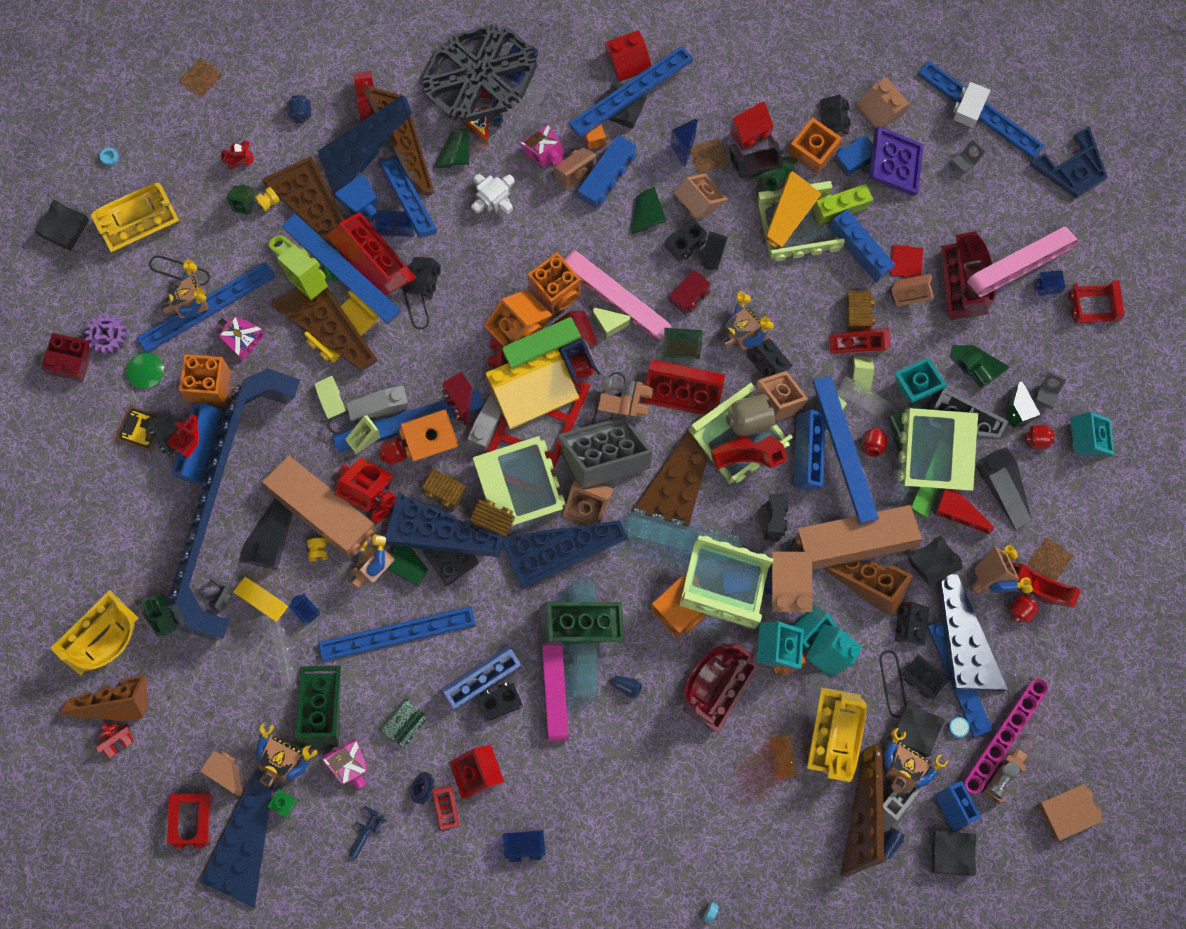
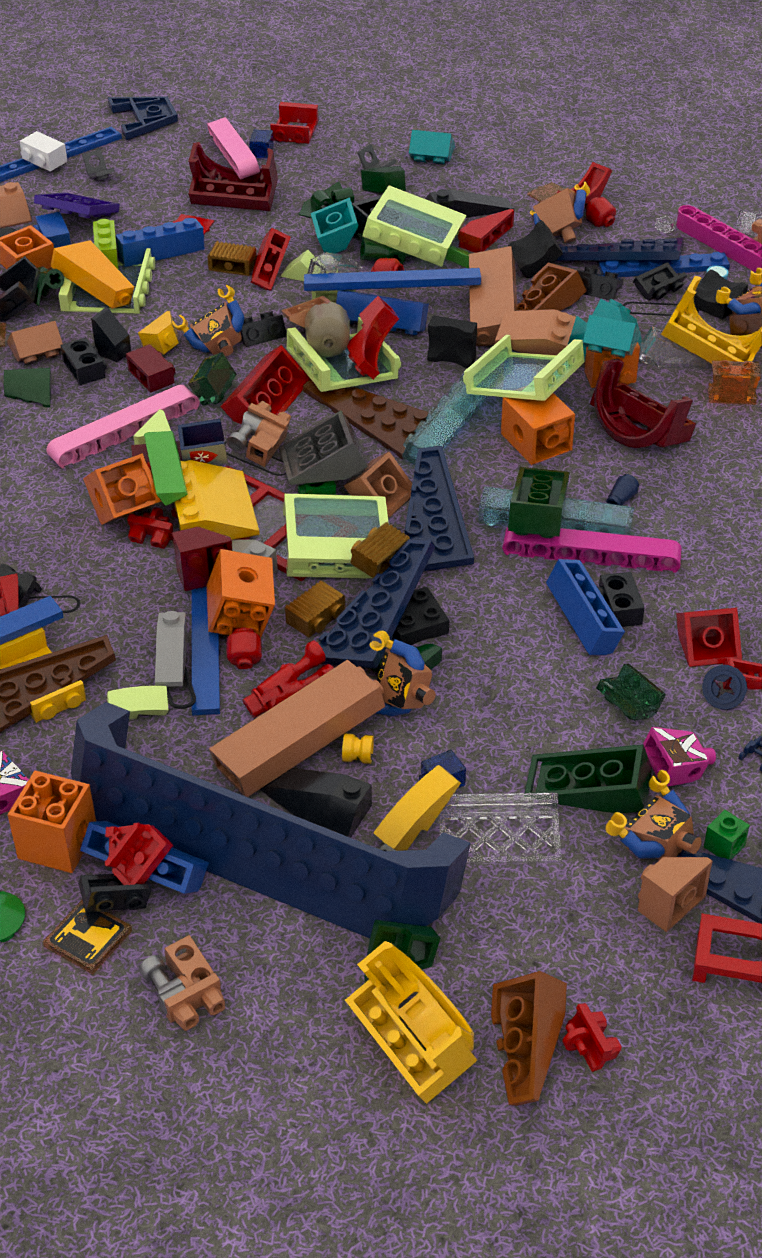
camera: 75 degrees left, 30 degrees down
(111, 500) = (192, 988): none -> nougat hips
(355, 493) = (294, 673): red panel -> none
(363, 435) = (209, 664): yellowish green slope -> none
(396, 634) = (502, 693): blue tile -> none
(554, 284) = (82, 449): orange brick -> none
(732, 283) = (160, 334): none -> yellow slope
(912, 290) = (228, 217): nougat panel -> none
(1039, 437) = (423, 172): red head -> none

